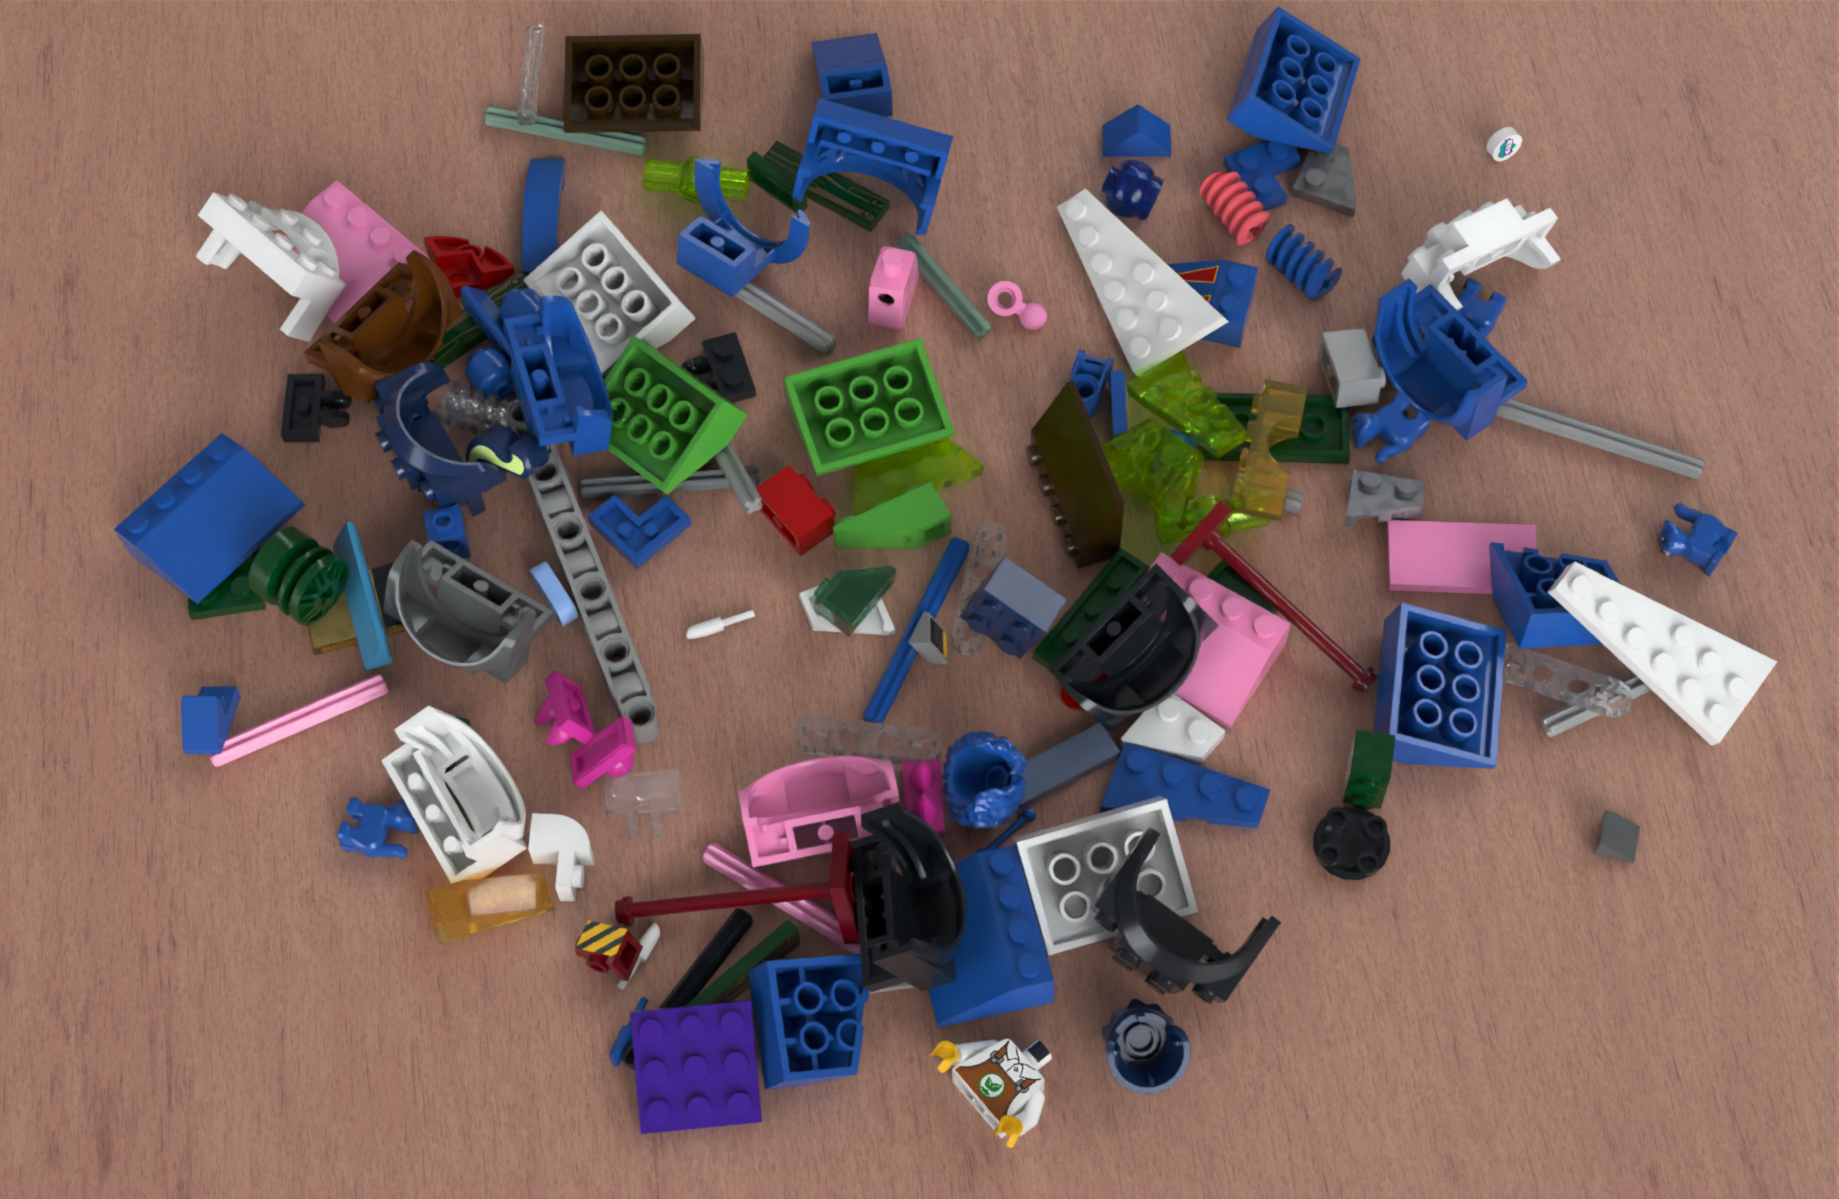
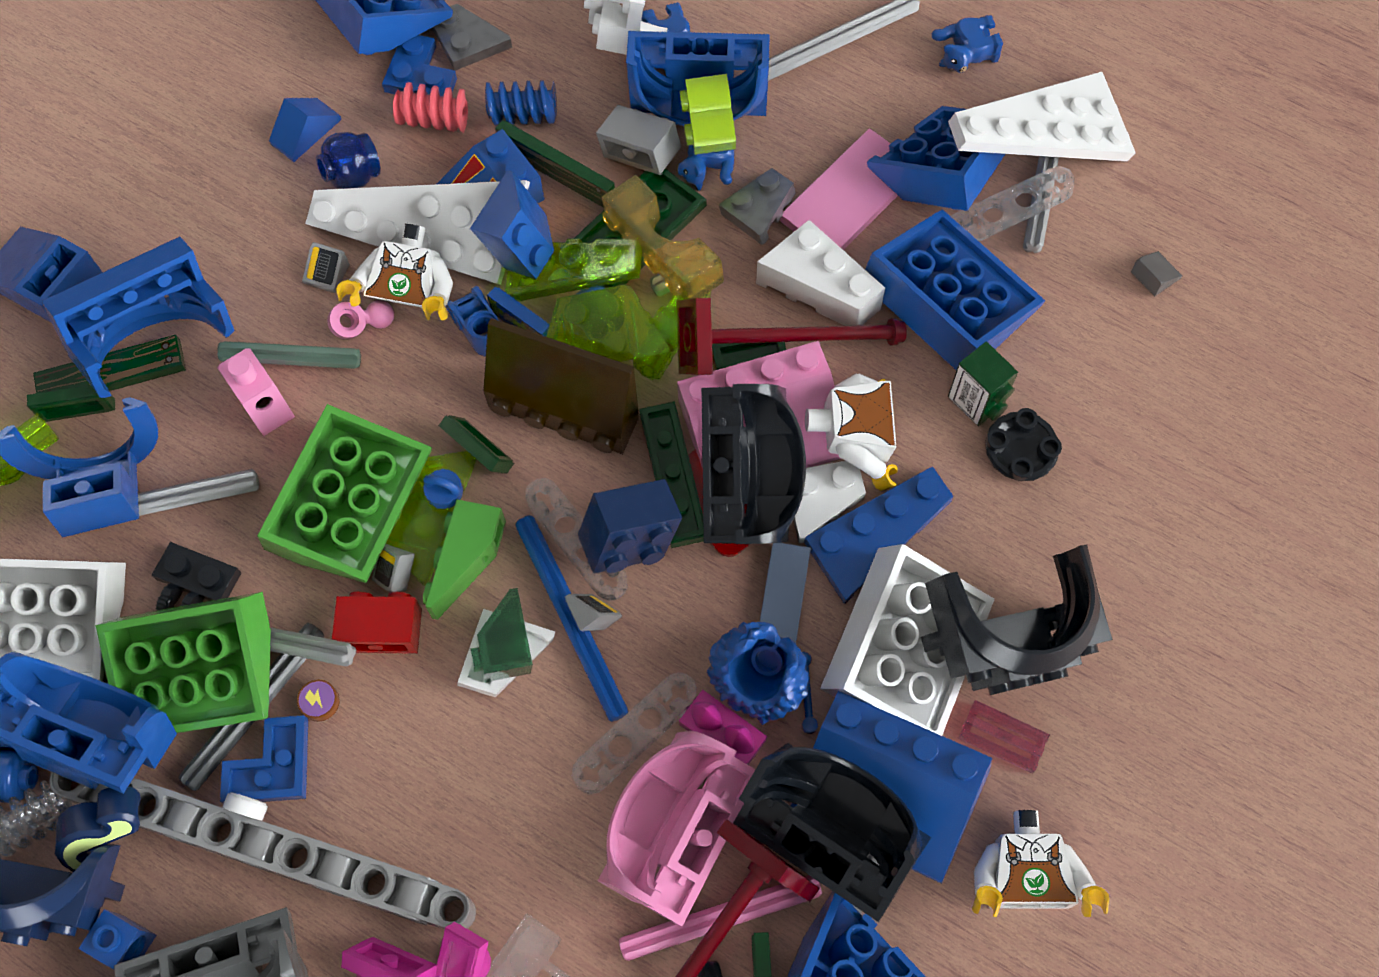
camera: 50 degrees left, 5 degrees up
(553, 593) = (264, 891): light blue beam -> none
(596, 531) = (245, 806): none -> white tile
(709, 519) = (318, 700): none -> tile
(716, 625) = (419, 773): white piece -> none
(844, 486) = (393, 569): none -> light grey slope
(931, 466) = (442, 488): none -> blue tile
(988, 462) = (476, 444): none -> dark green tile
(1034, 250) = (325, 267): none -> slope
(1072, 303) = (402, 275): none -> torso
(1085, 966) = (1036, 750): none -> clear pink tile
(1145, 1048) = (1096, 732): dark blue hat -> none
(1180, 342) = (515, 228): none -> blue slope
(1246, 703) = (859, 426): none -> white torso
(1272, 324) = (558, 165): none -> dark green tile
(1357, 587) = (822, 275): none -> white wedge
(1413, 396) = (709, 113): none -> lime brick

